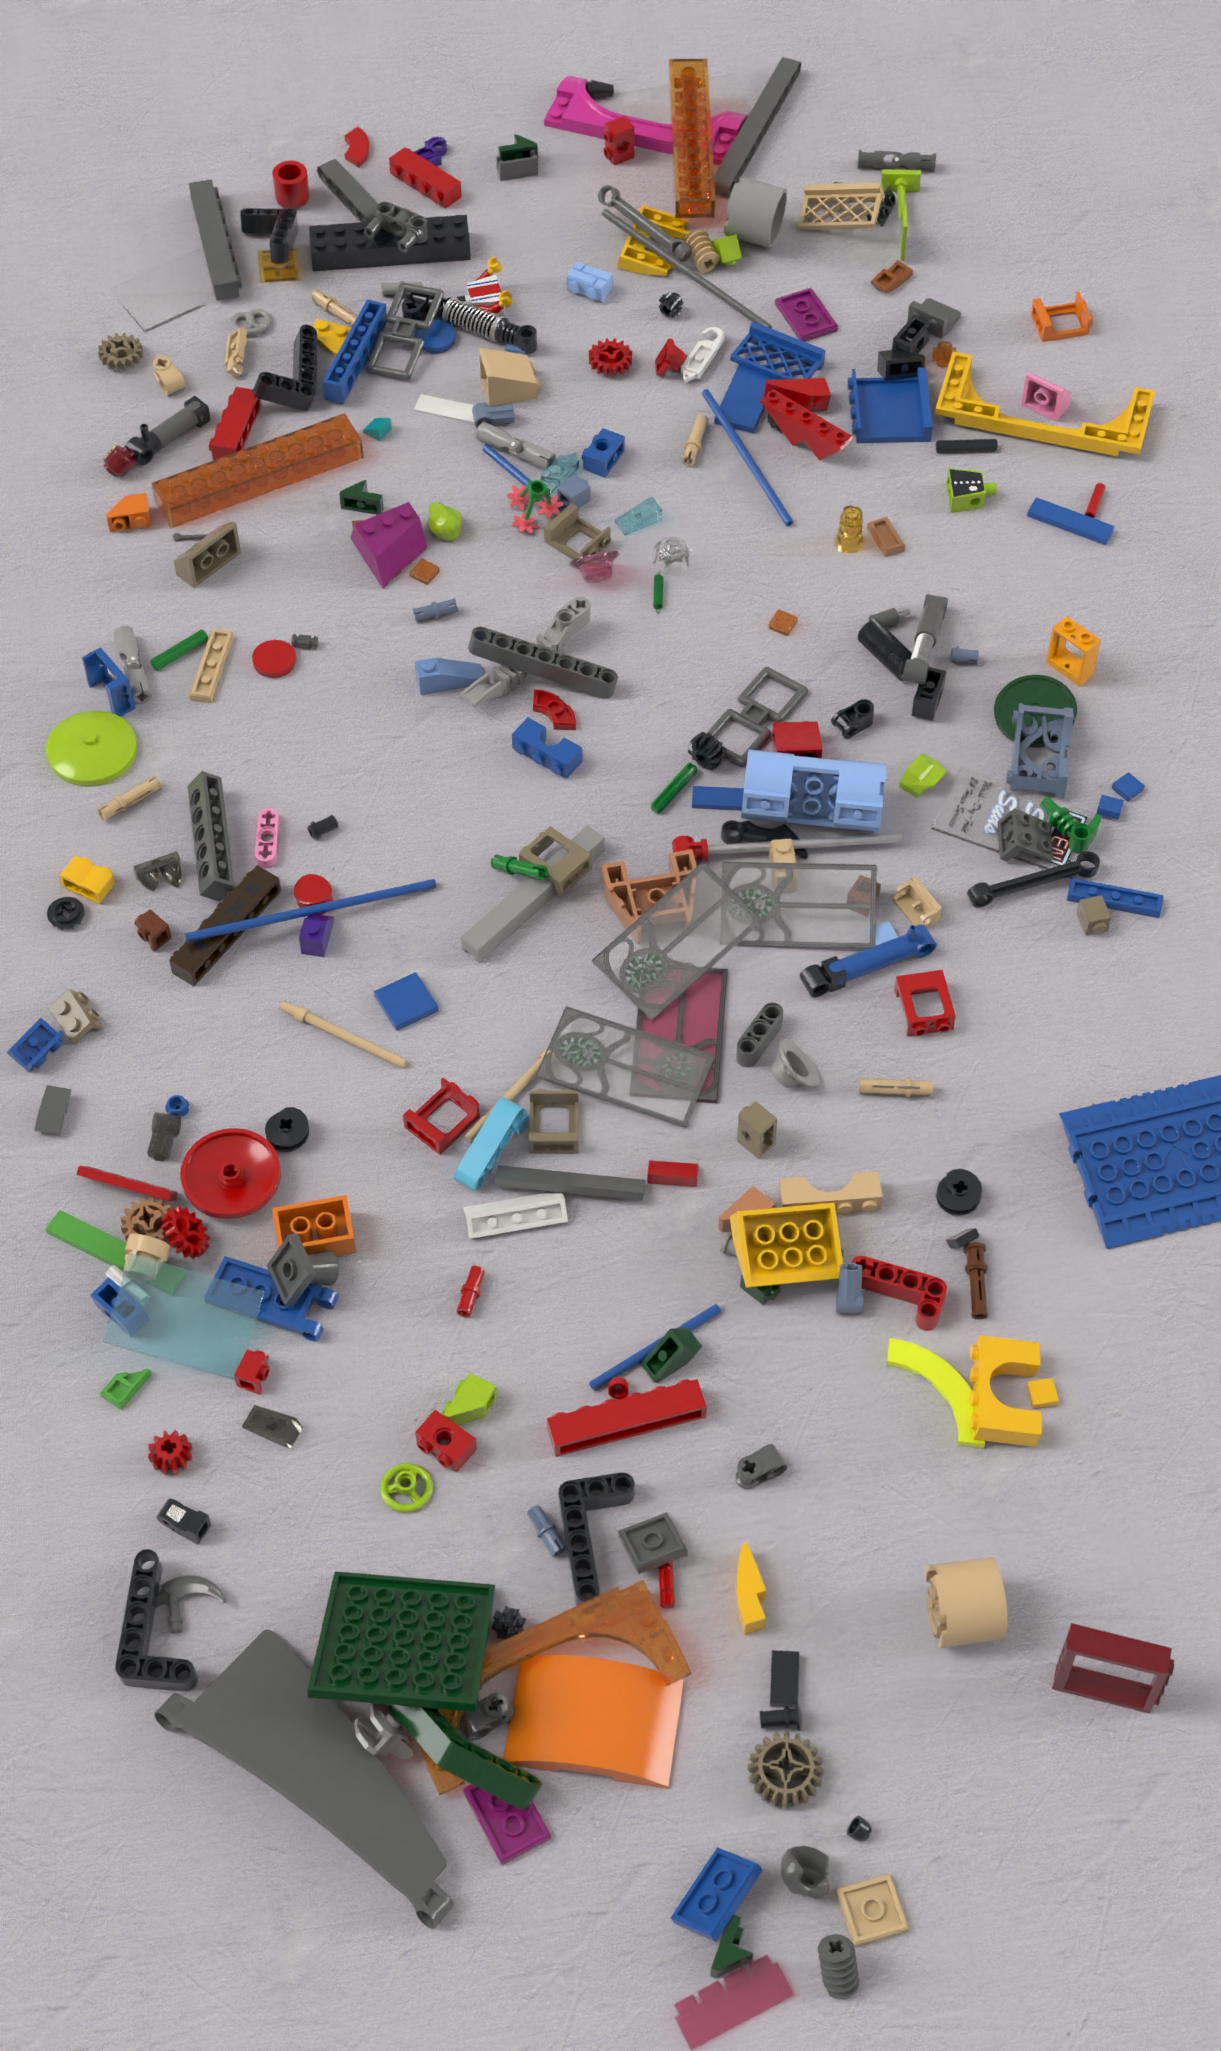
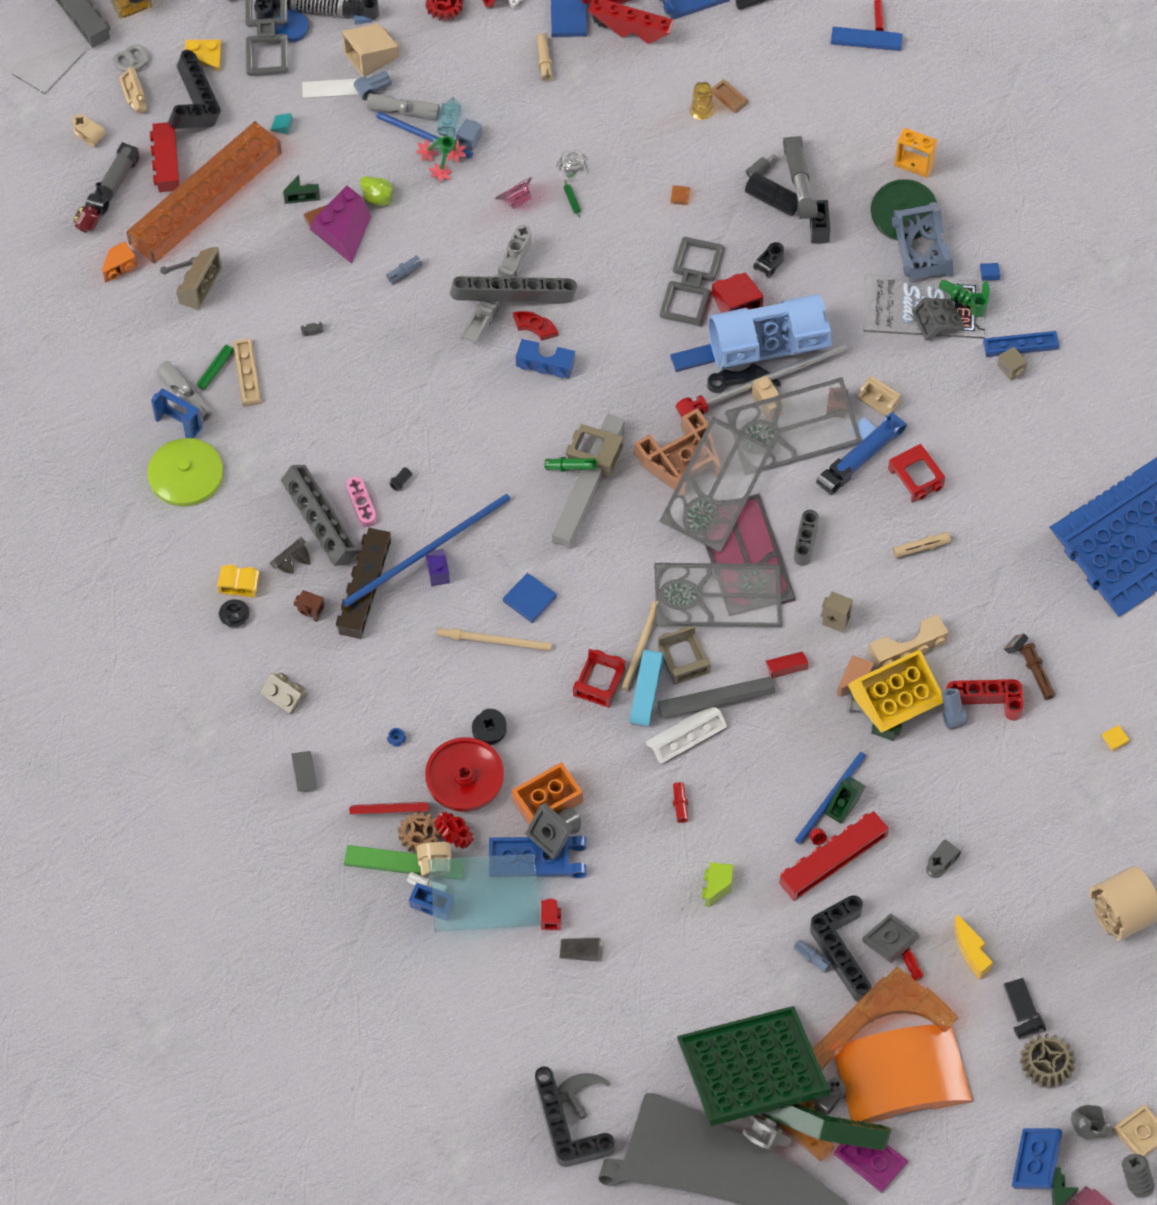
camera: 20 degrees left, 5 degrees up
(35, 1044) = (266, 725): blue bracket -> none
(120, 351) = (38, 119): dark tan gear -> none
(122, 802) = (232, 511): tan pin -> none
(124, 1387) = (459, 959): bright green tile -> none
(164, 1130) = (397, 759): clear smoke piece -> none
(181, 1452) = (518, 987): red gear -> none
(184, 1521) = (551, 1038): black leg -> none
(274, 658) = (294, 350): red tile -> none
(312, 890) = (418, 534): red piece -> none
(331, 305) = (191, 23): tan pin -> none
(354, 352) = (234, 61): blue brick -> none
(408, 1475) = (698, 952): lime piece -> none
(424, 571) = (378, 238): clear orange tile -> none
(440, 1428) = (705, 908): red brick -> none
(445, 674) = (438, 322): medium blue slope -> none
(508, 1623) = (816, 1028): black gear -> none
(567, 525) = (475, 164): dark tan window -> none
(603, 452) = (476, 91): blue brick -> none
(640, 516) = (529, 138): clear light blue slope -> none
(673, 788) = (656, 360): green axle -> none
(707, 750) = (670, 322): black gear -> none
(747, 457) = (592, 60): blue piece -> none
(794, 1066) = (843, 555): light grey hat -> none
(859, 1829) = (1112, 1082): black hinge -> none
(922, 774) = (841, 290): lime slope -> none
(943, 1378) = (1046, 752): neon yellow tile -> none
(959, 1192) = (1007, 607): black piece -> none
(964, 655) = (831, 180): sand blue pin -> none
(967, 489) = (777, 36): torso -> none
(983, 894) = (925, 372): black piece -> none
(991, 1418) = (1089, 768): yellow arch -> none
(1128, 786) = (996, 250): blue tile -> none

